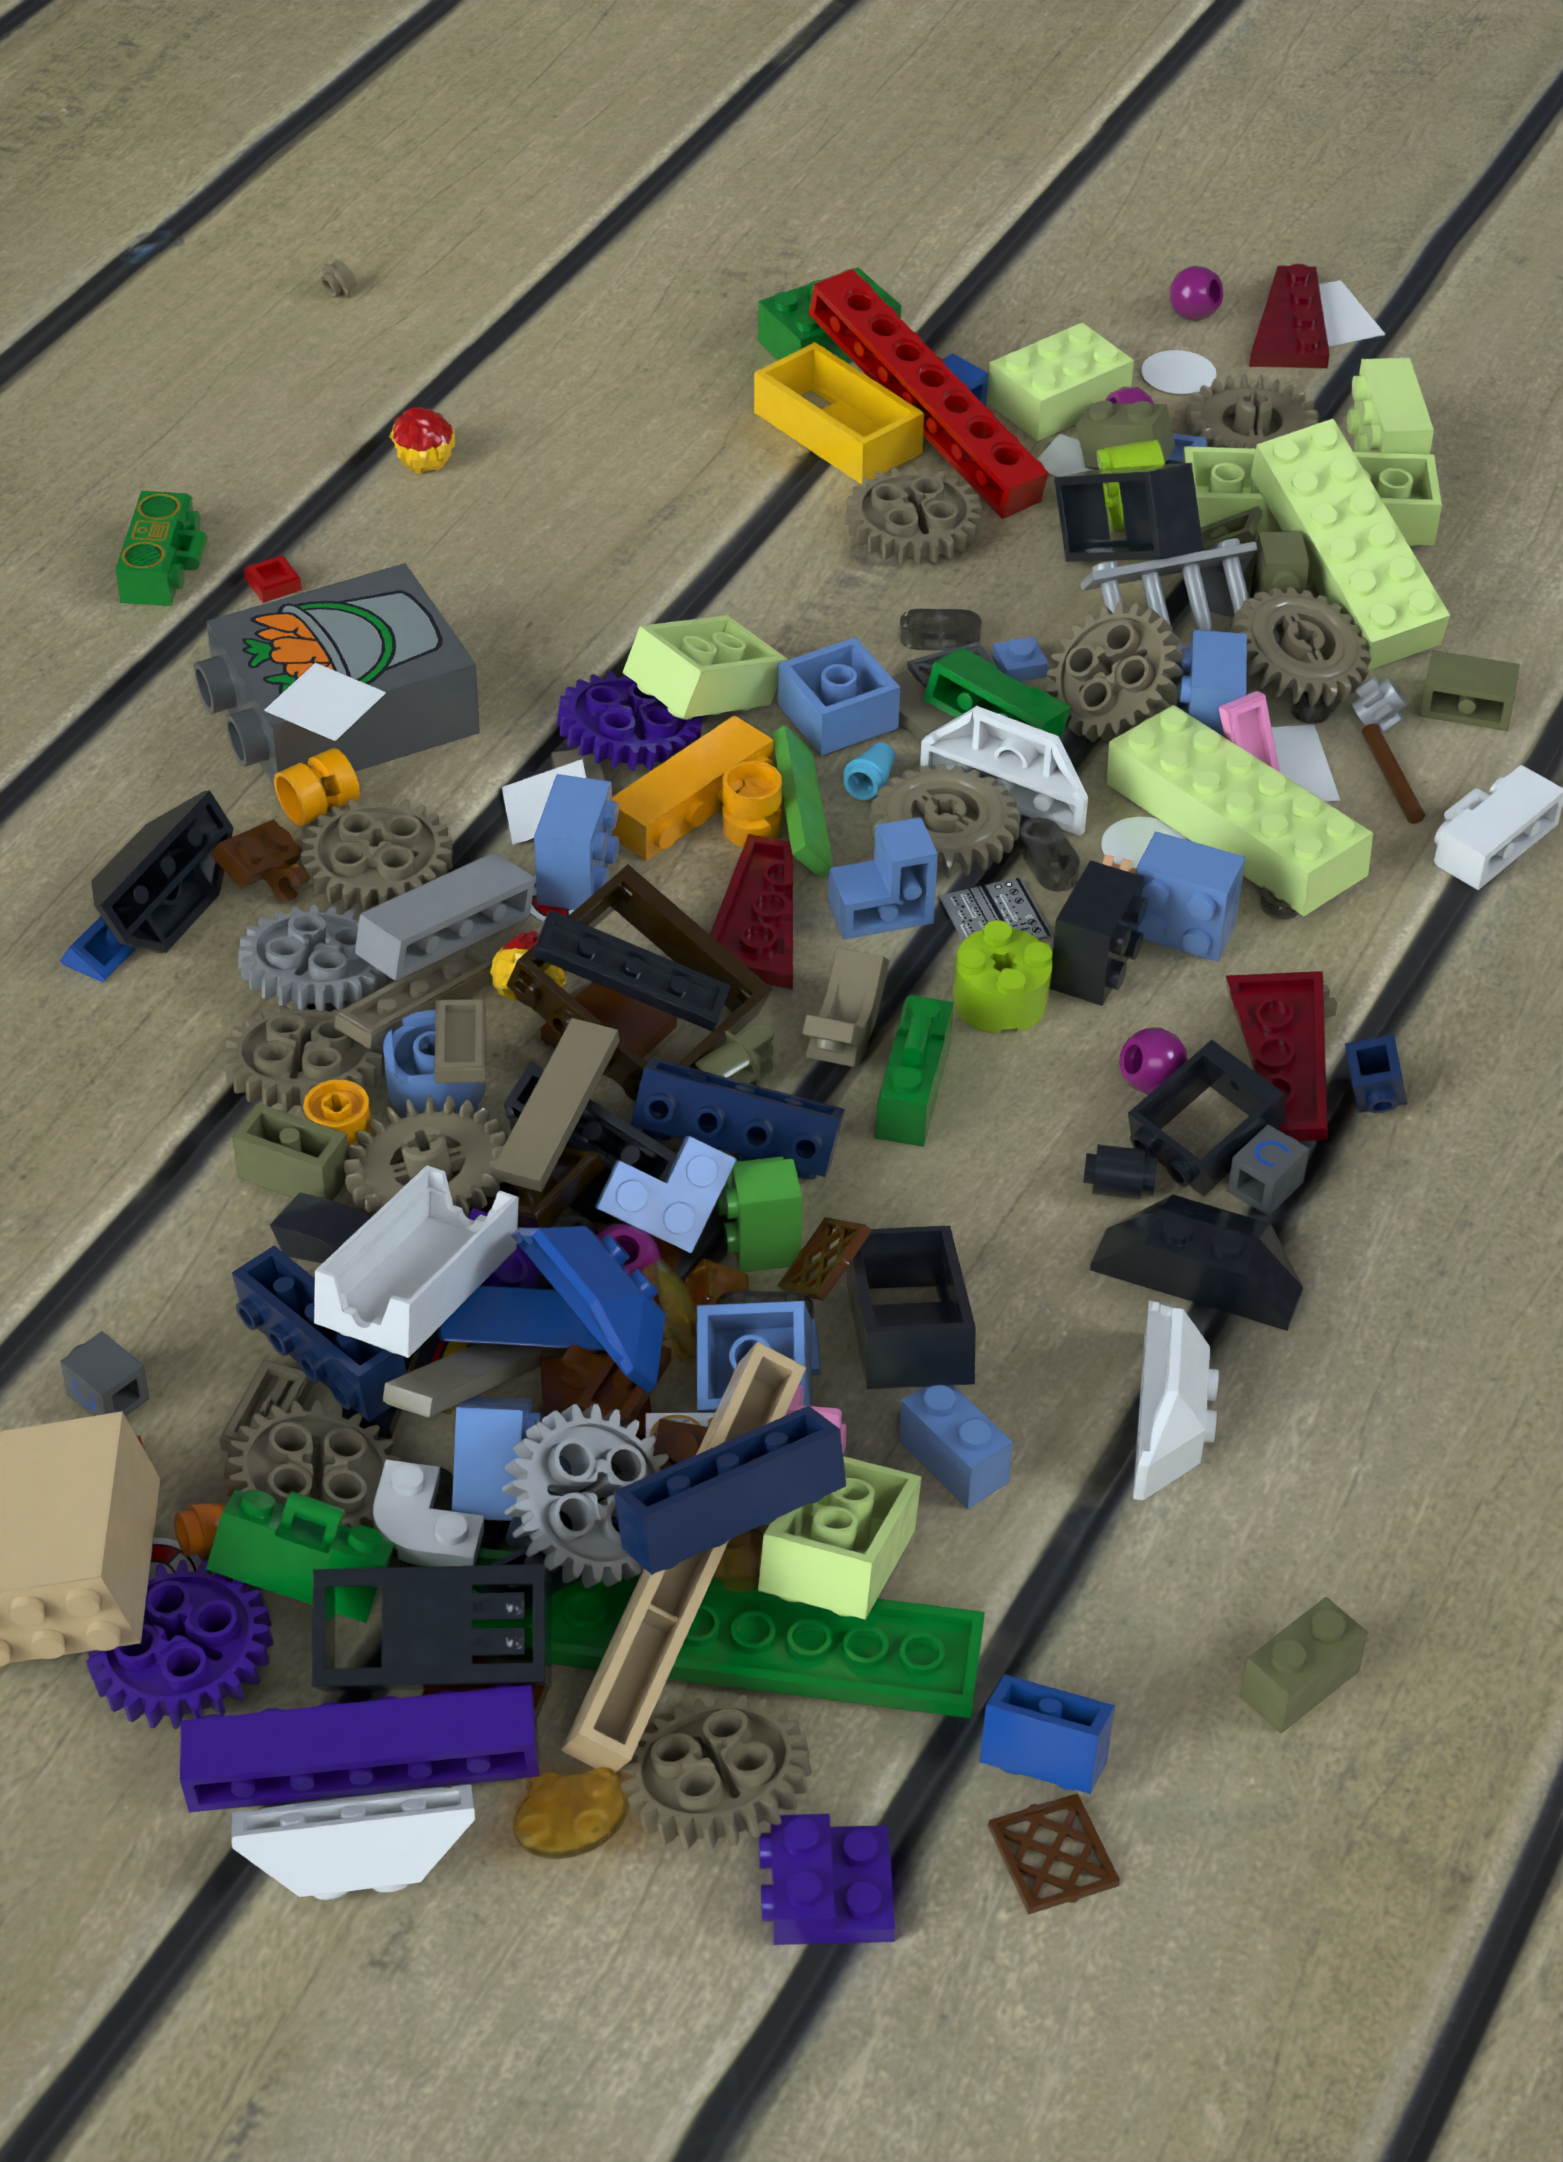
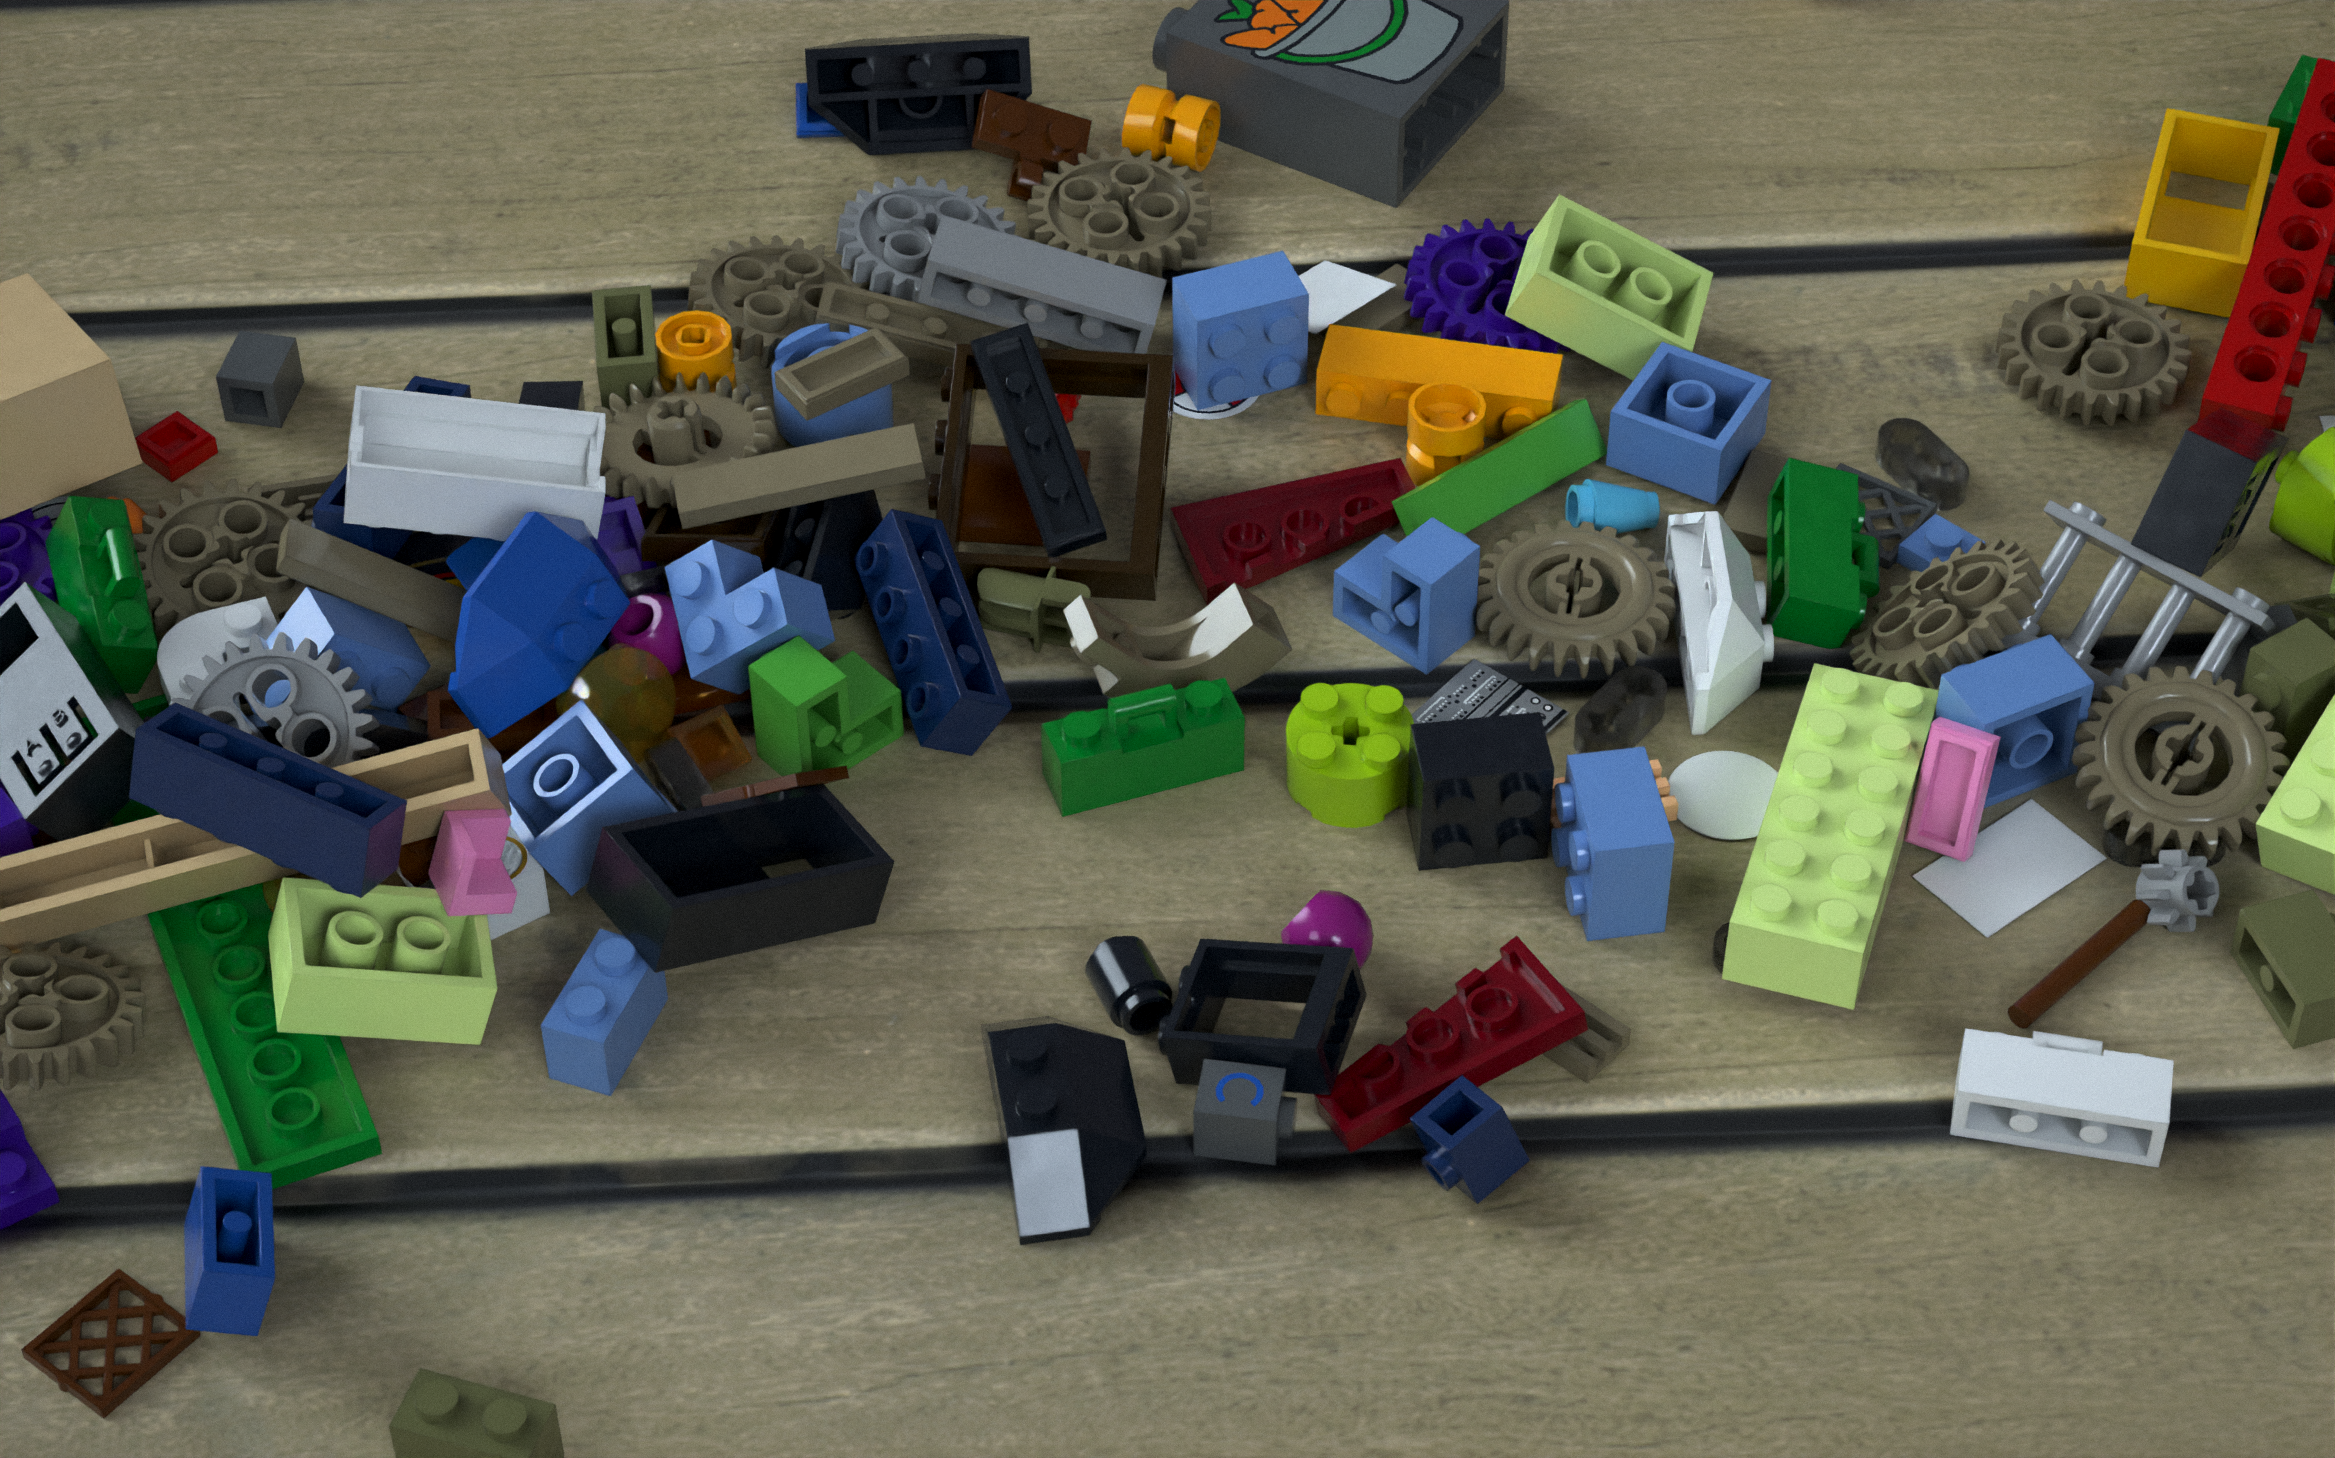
camera: 60 degrees right, 0 degrees up
(325, 701) = (1235, 48): white sticker -> none
(1172, 1399) = (794, 1161): white wedge -> none

